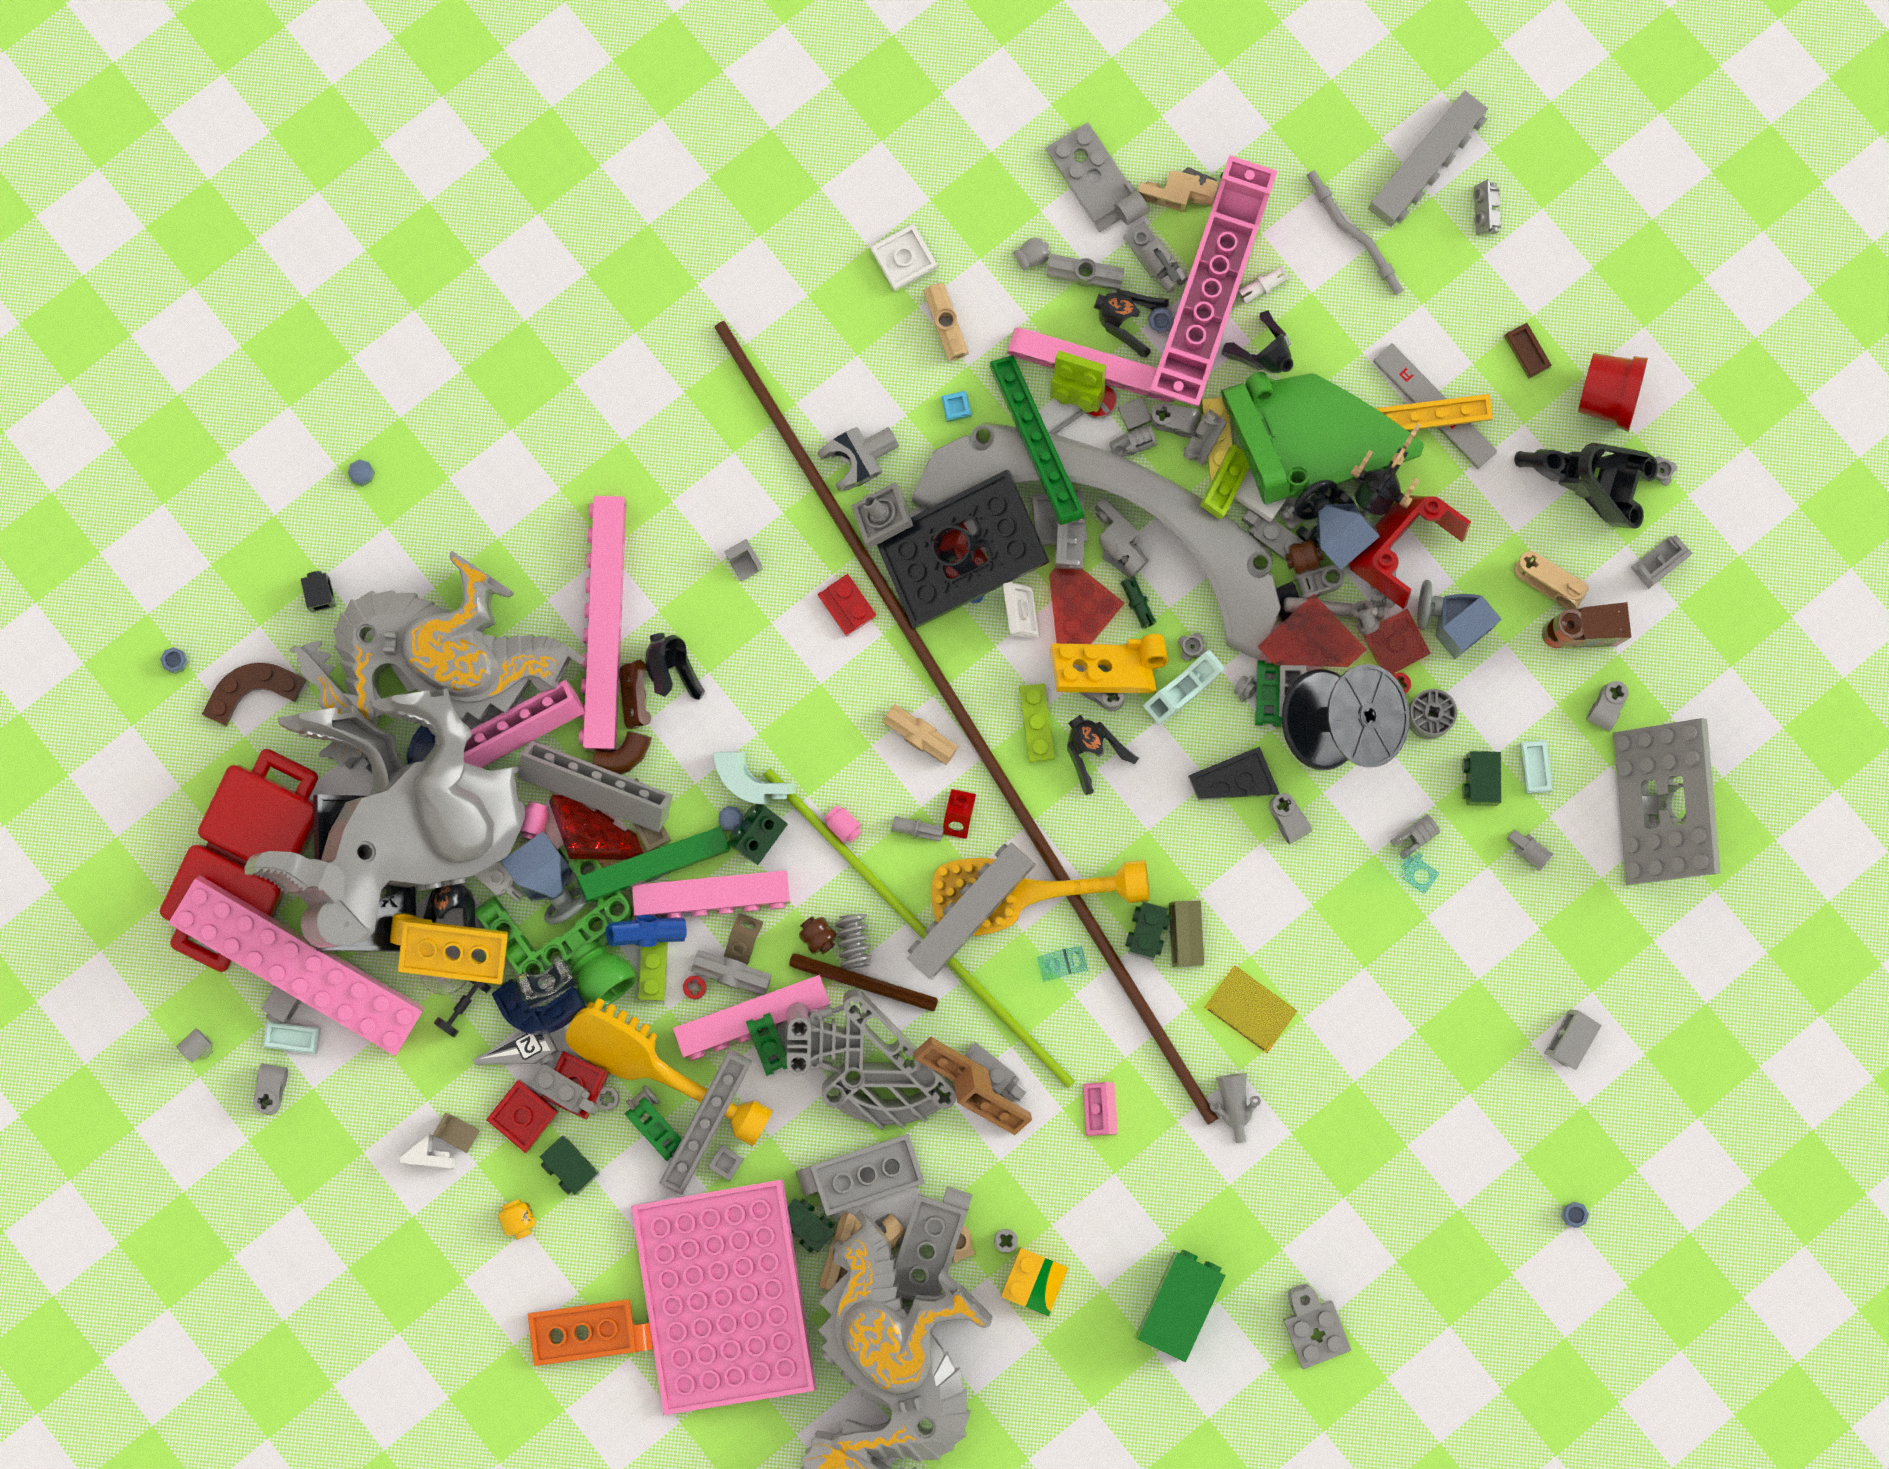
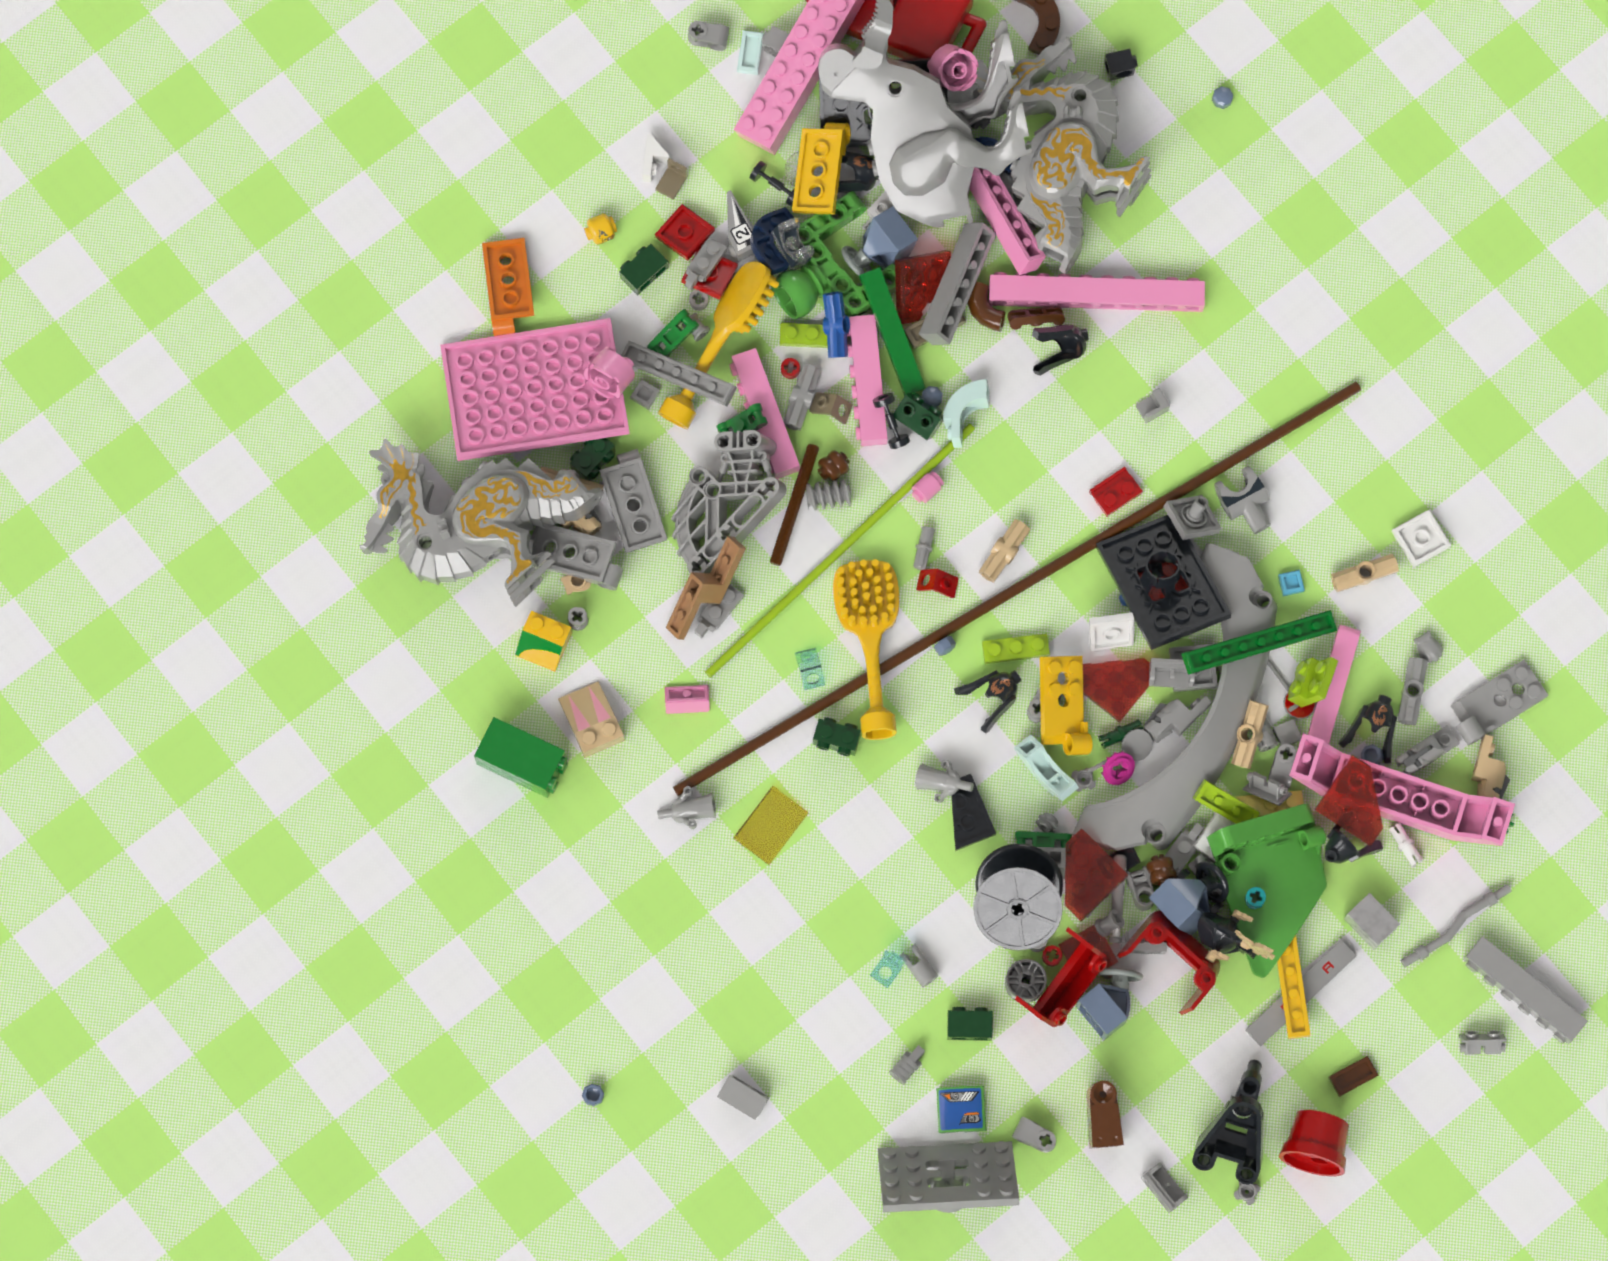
camera: 90 degrees right, 5 degrees down
(330, 784) = (953, 67): none -> bright pink brick
(535, 820) = (929, 237): bright pink brick -> none
(710, 1203) = (610, 373): none -> bright pink brick
(743, 873) = (883, 401): none -> black wheel
(970, 911) = (852, 585): light grey brick -> none
(1036, 804) = (945, 646): none -> sand blue tile
(1127, 1223) = (591, 719): none -> tan slope
(1128, 448) = (1253, 720): none -> tan piece
(1154, 587) = (1135, 743): none -> light grey piece
(1186, 602) = (1120, 775): none -> dark pink gear
(1186, 933) = (834, 772): olive piece -> none
(1199, 810) = (935, 779): none -> light grey piece
(1224, 337) = (1353, 801): none -> clear red plate
(1291, 823) = (930, 859): light grey piece -> none
(1311, 1315) = (511, 869): light grey plate -> none
(1344, 450) = (1262, 896): none -> teal bush
(1355, 324) = (1371, 921): none -> flat silver piece
(1443, 664) = (1069, 983): none -> red windscreen
(1536, 767) = (981, 1073): light aqua tile -> none
(1551, 580) = (1144, 1089): tan piece -> none
(1579, 788) = (961, 1109): none -> slope

